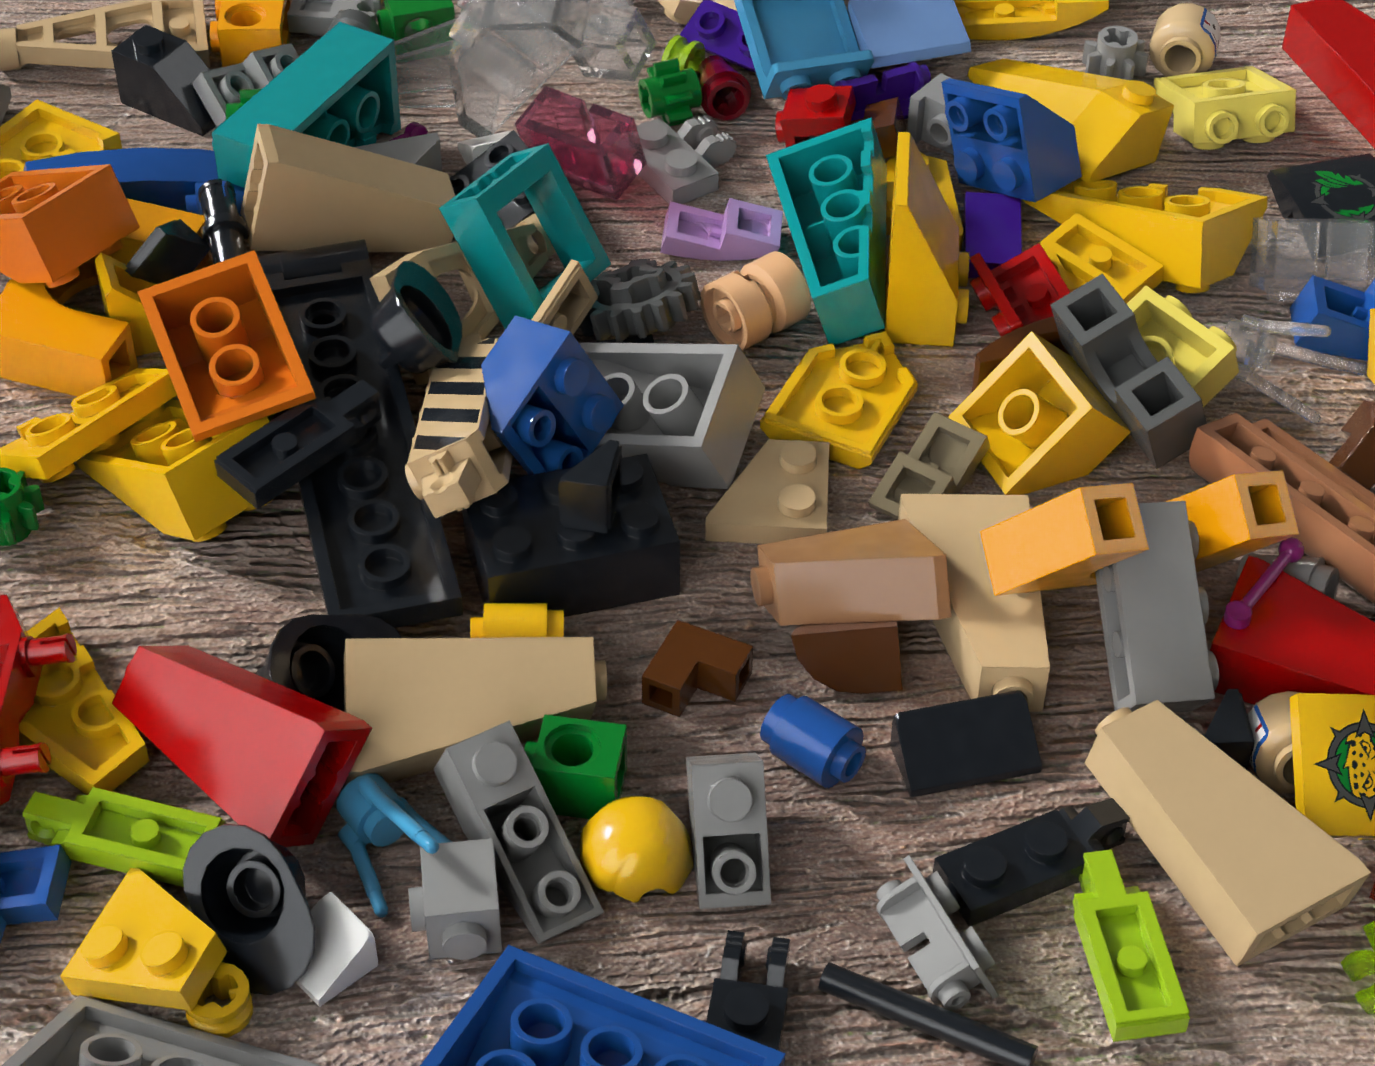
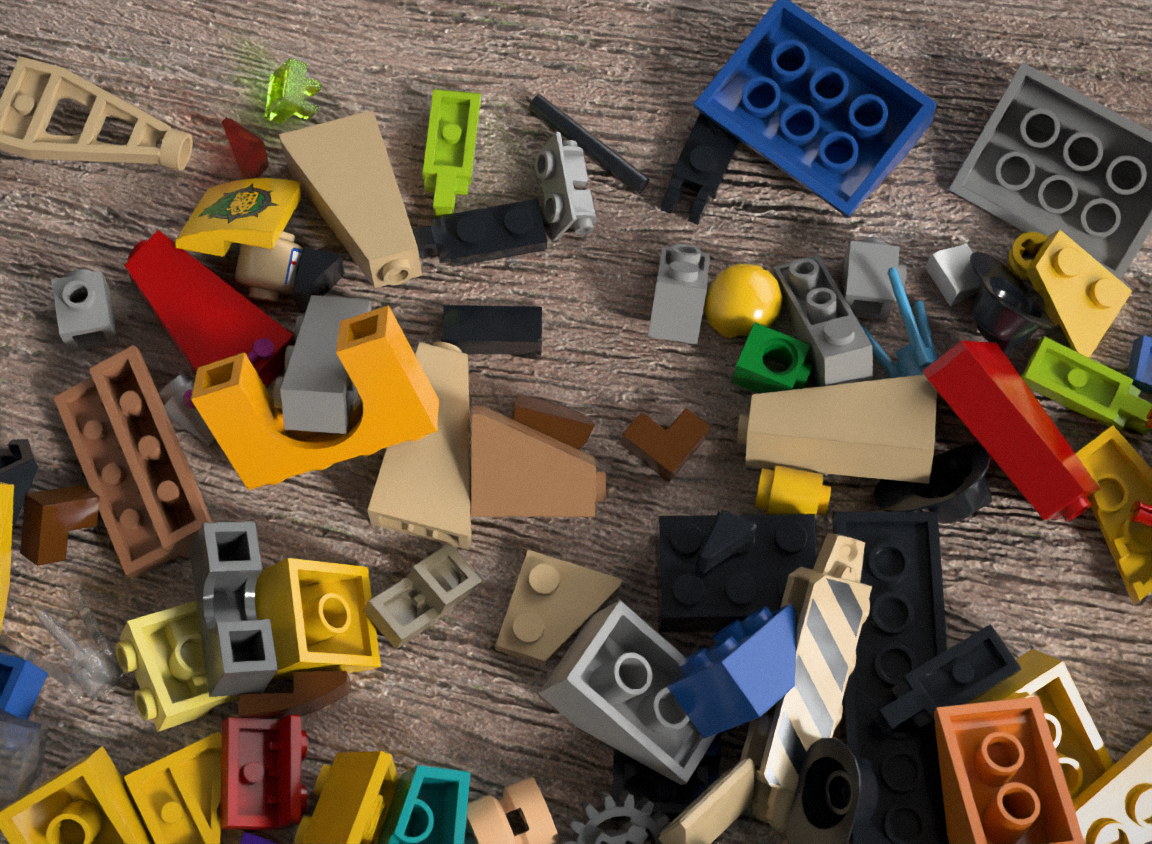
camera: 170 degrees left, 25 degrees up
(813, 740) = (600, 348): blue brick -> none
(843, 399) = (462, 704): yellow tile -> none

